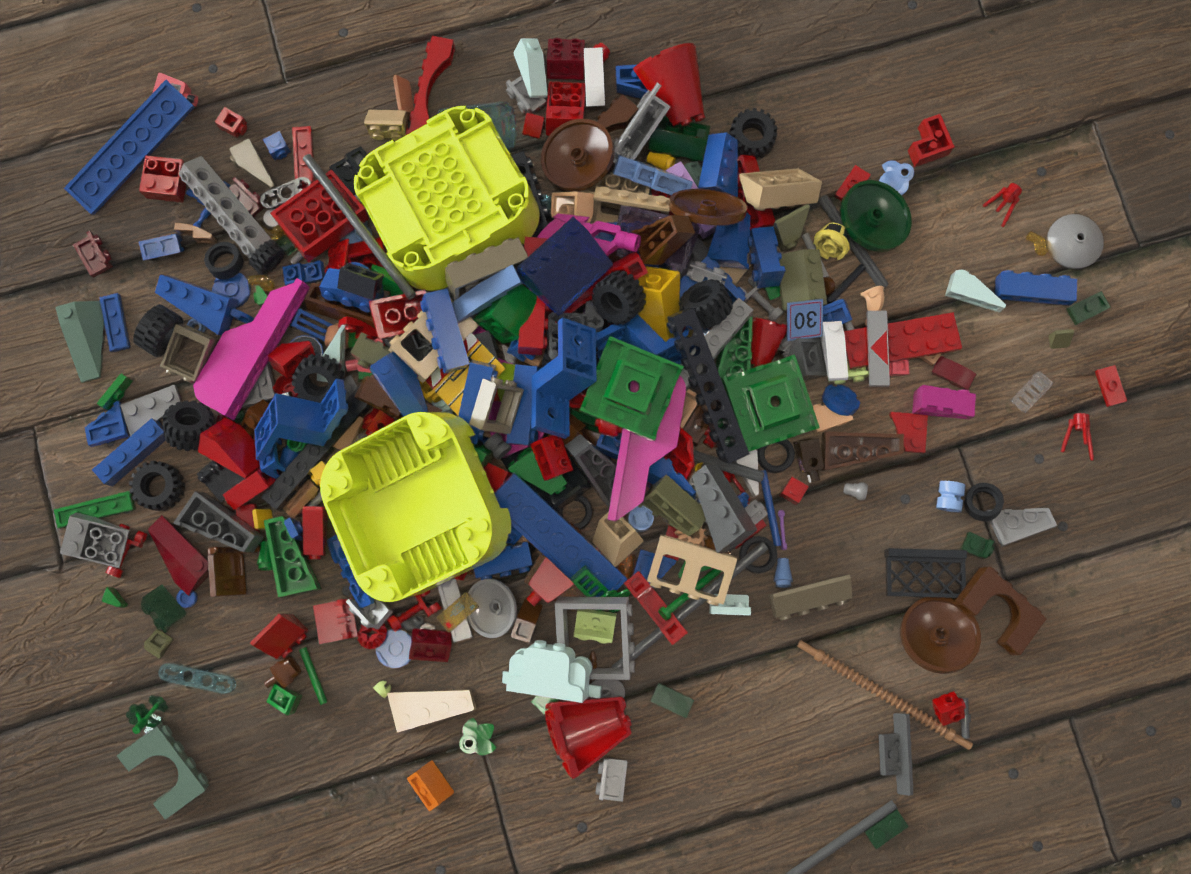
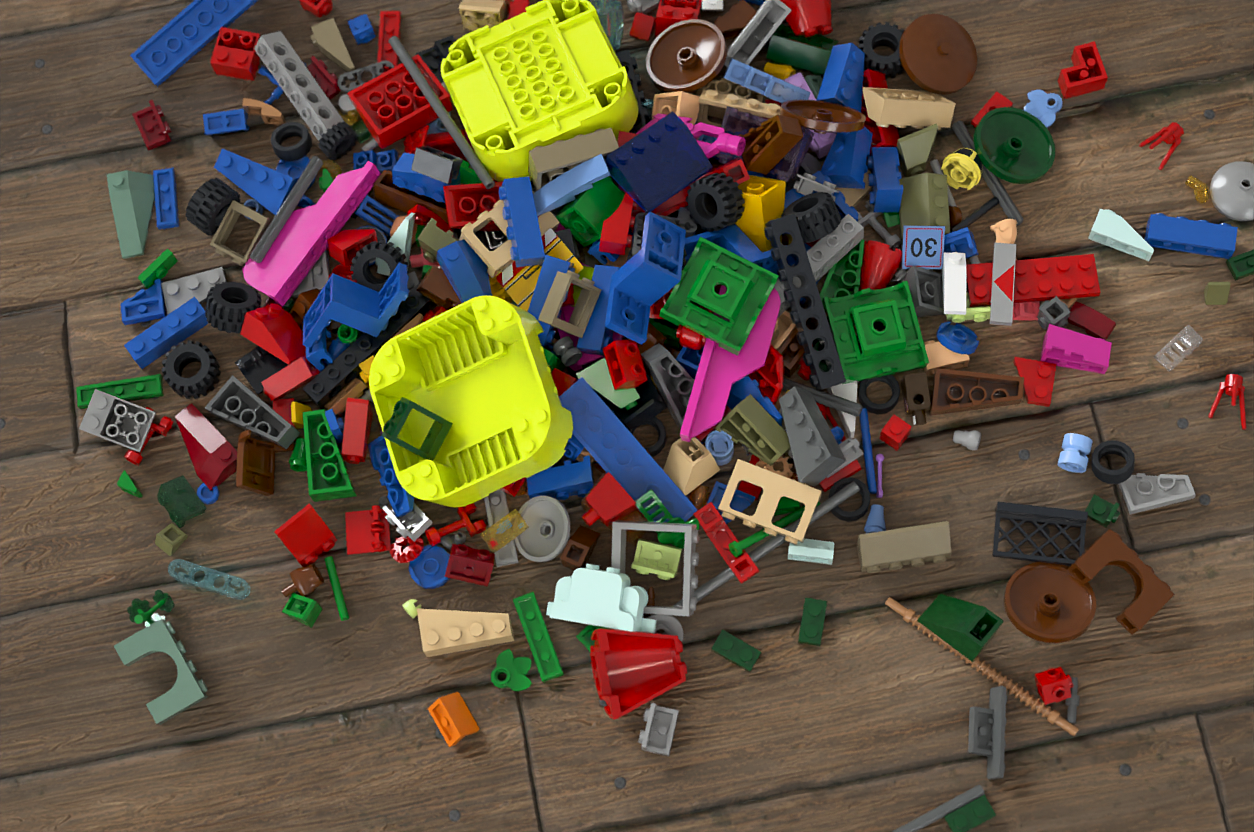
camera: 15 degrees right, 10 degrees down
(226, 328) = (286, 209): none -> dark grey axle
(384, 542) = (434, 437): none -> dark green window
(497, 703) = (538, 637): none -> green tile
(736, 668) = (812, 621): none -> dark green plate
(801, 134) = (938, 54): none -> reddish brown dish
(866, 662) = (961, 624): none -> dark green slope
(929, 369) = (1051, 309): none -> dark grey brick

